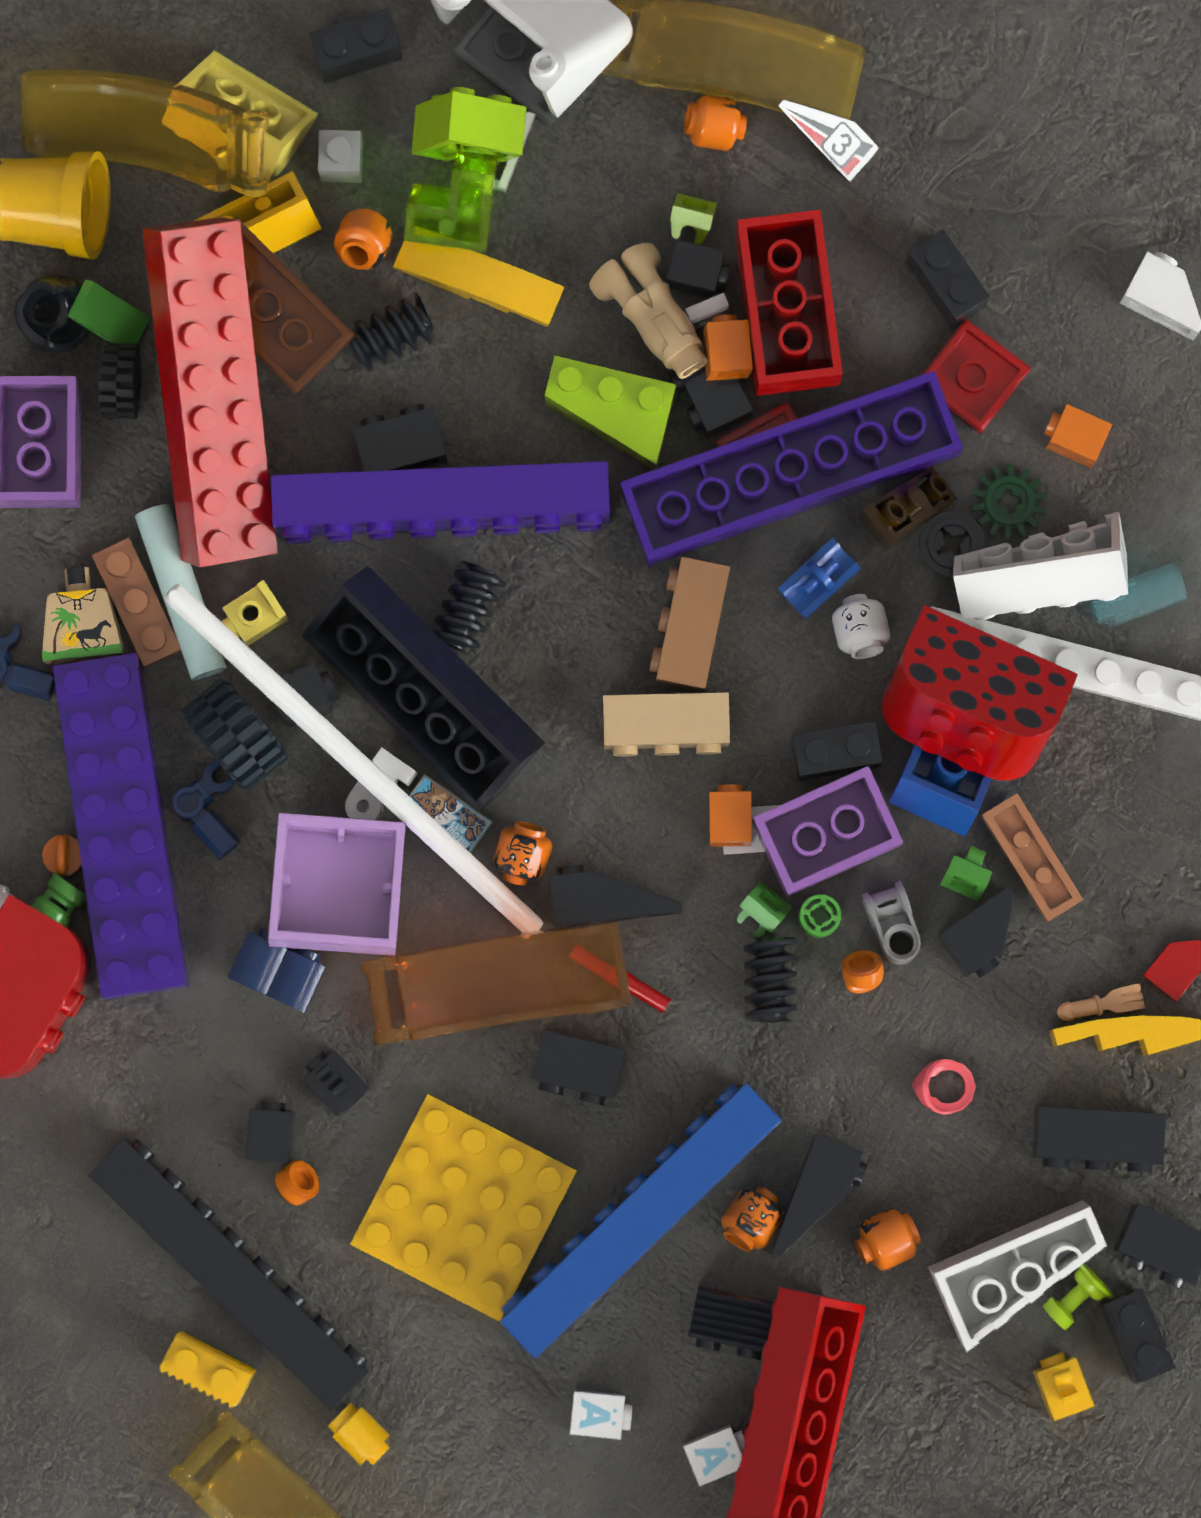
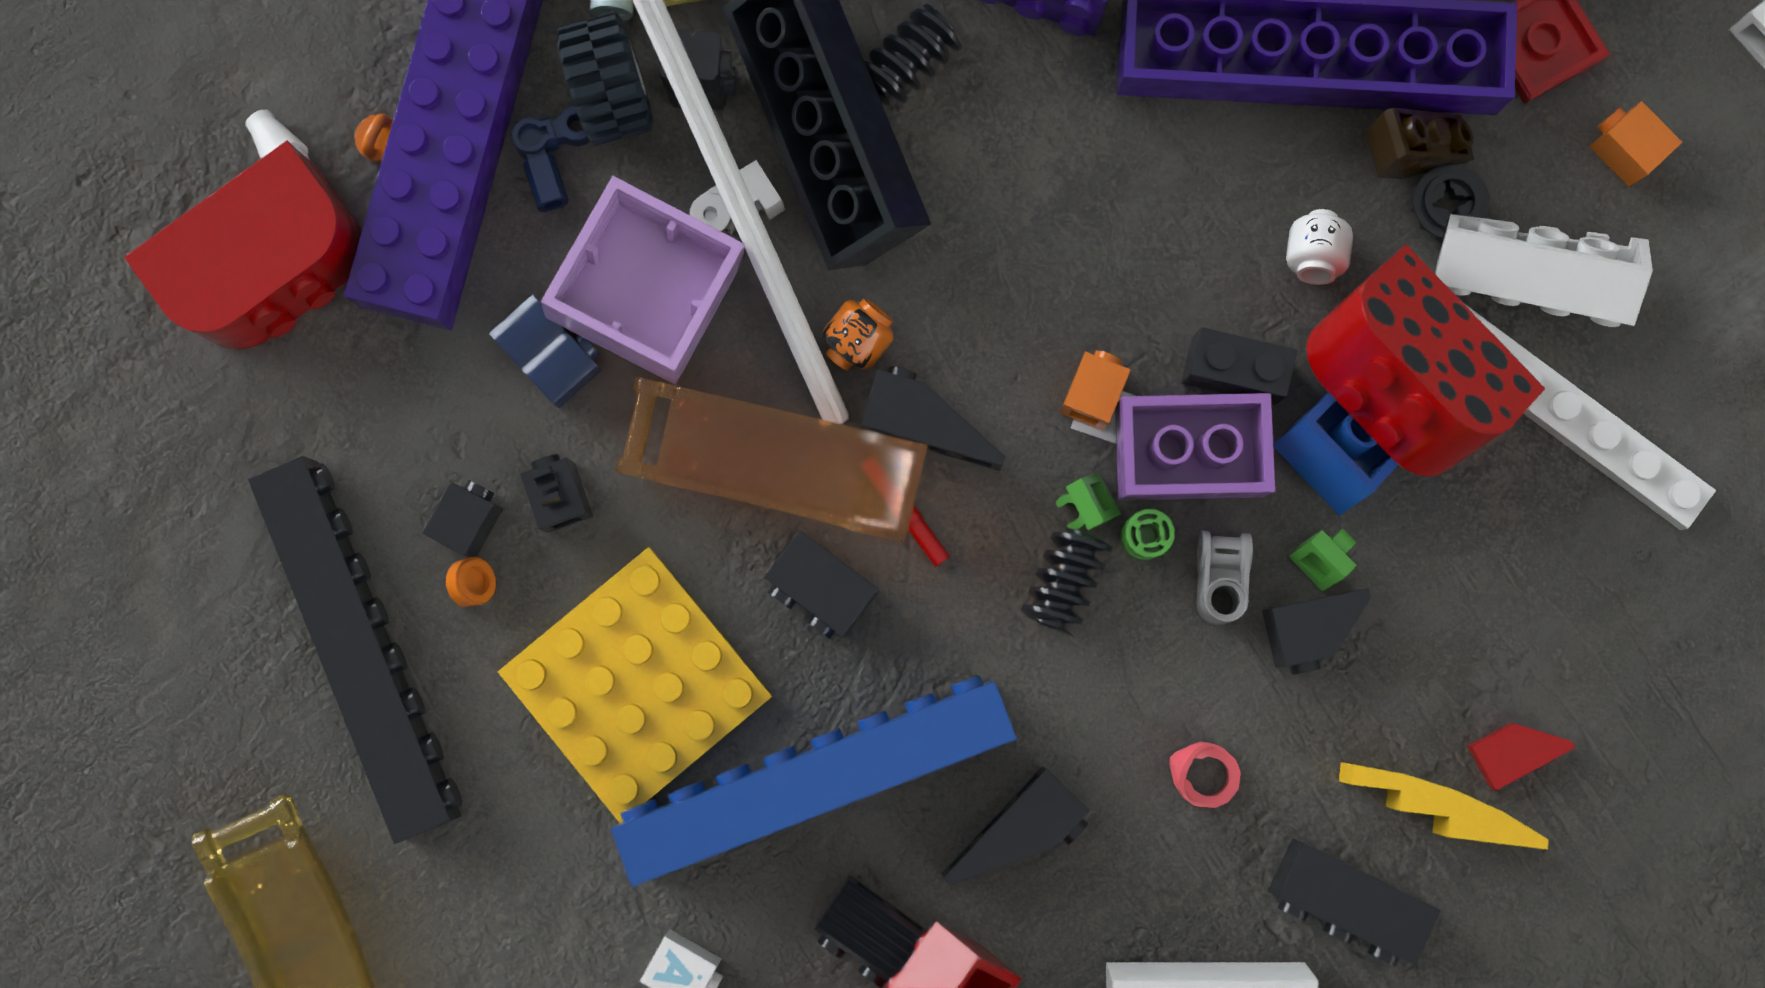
camera: 25 degrees right, 0 degrees up
(63, 893) = (359, 175): bright green wheel -> none
(207, 1369) = (285, 740): yellow brick -> none
(359, 1434) = (417, 881): yellow brick -> none
(451, 813) = (802, 263): tile -> none
(666, 723) = (1069, 262): tan brick -> none
(690, 624) = (1138, 169): medium nougat brick -> none
(751, 1219) = (937, 829): orange head -> none
(818, 578) = (1295, 177): blue hips -> none
(862, 971) = (1168, 613): orange tile -> none
(887, 1239) = (1075, 915): orange head -> none
(1019, 488) = (1543, 174): dark green gear -> none
(1031, 857) = (1401, 569): nougat plate -> none
(1116, 1001) = (1428, 761): light nougat piece -> none
(1146, 595) = (1651, 340): clear light blue brick -> none

